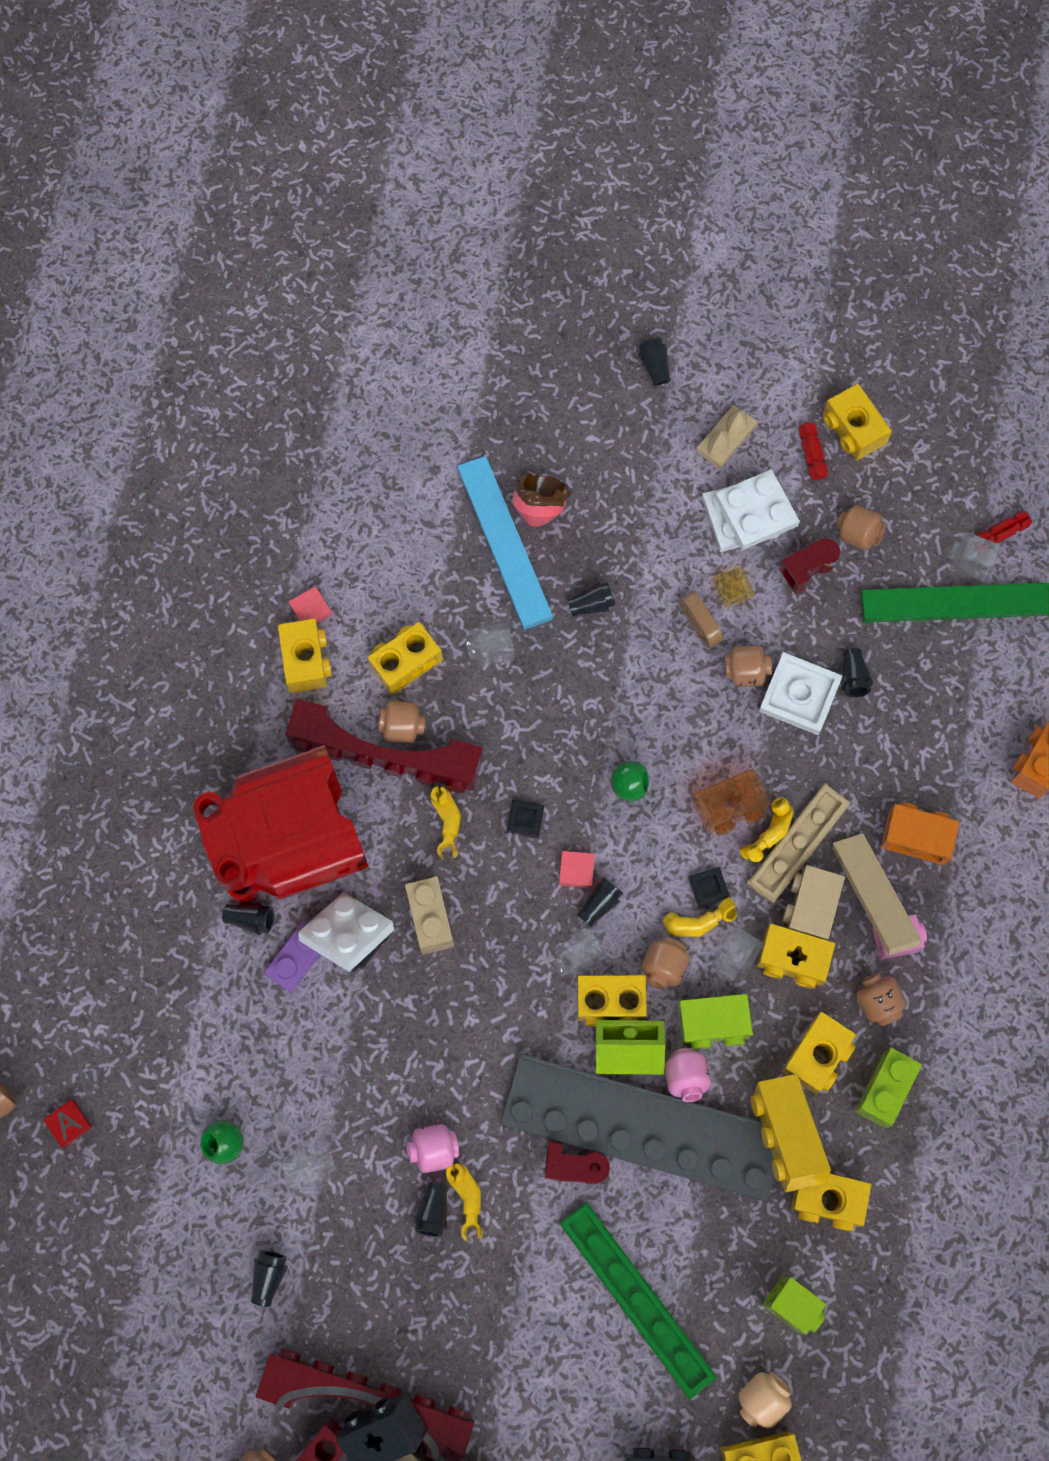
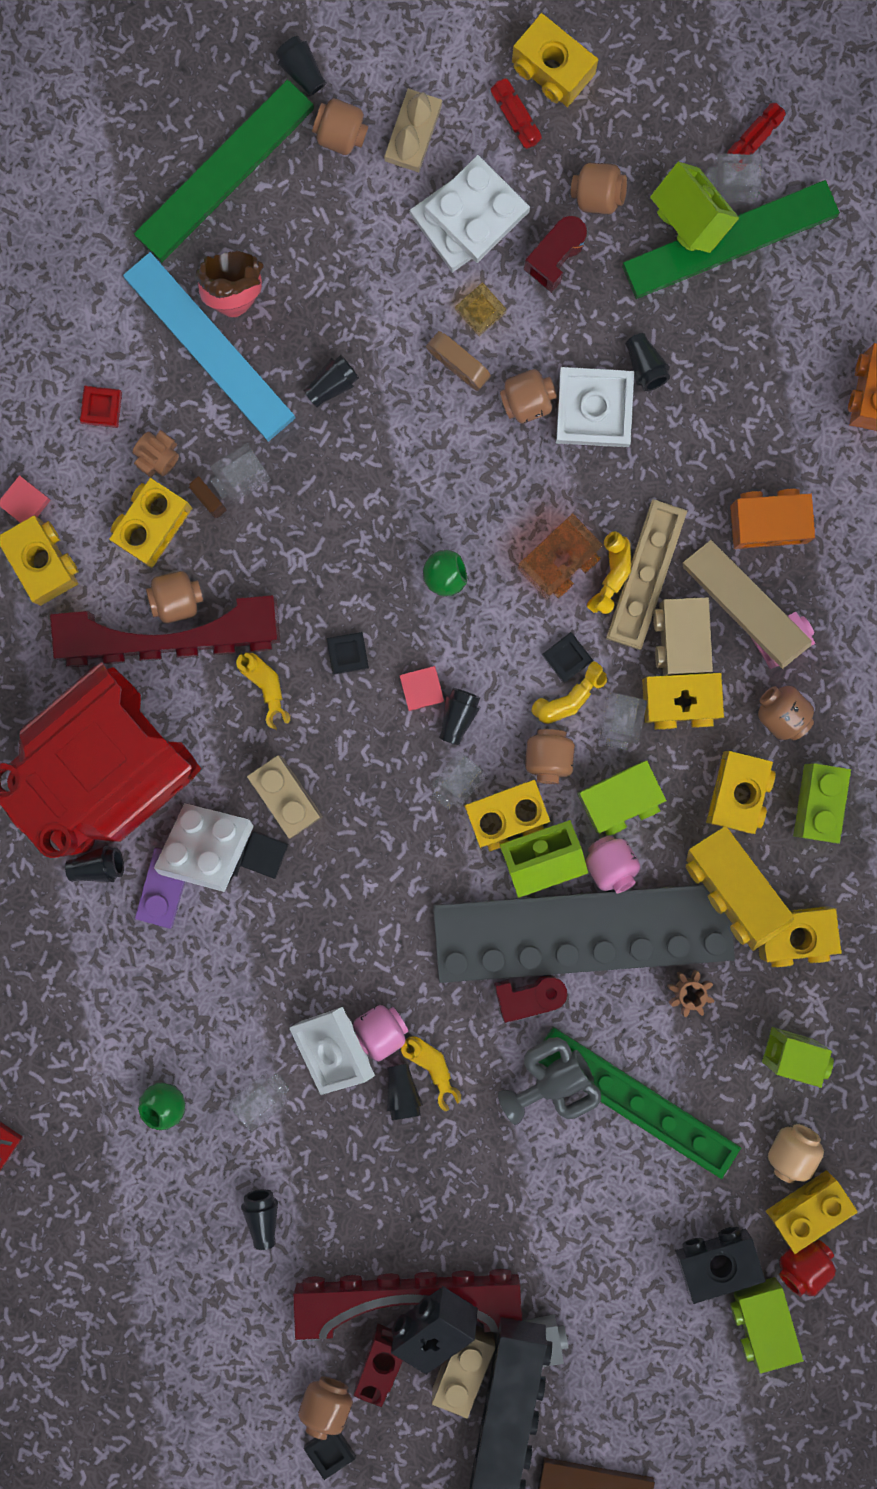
camera: 20 degrees left, 15 degrees up
(386, 1146) = (332, 1051): none -> white plate
(393, 960) = (264, 855): none -> black tile
(400, 557) = (101, 406): none -> red tile
(430, 606) = (155, 453): none -> nougat gear
(458, 654) = (207, 497): none -> reddish brown tile
(566, 417) = (224, 170): none -> green tile
(572, 1248) = (555, 1082): none -> dark grey piece
(669, 414) = (339, 126): none -> nougat head
(712, 1224) = (700, 995): none -> nougat gear
(932, 566) = (693, 208): none -> lime brick

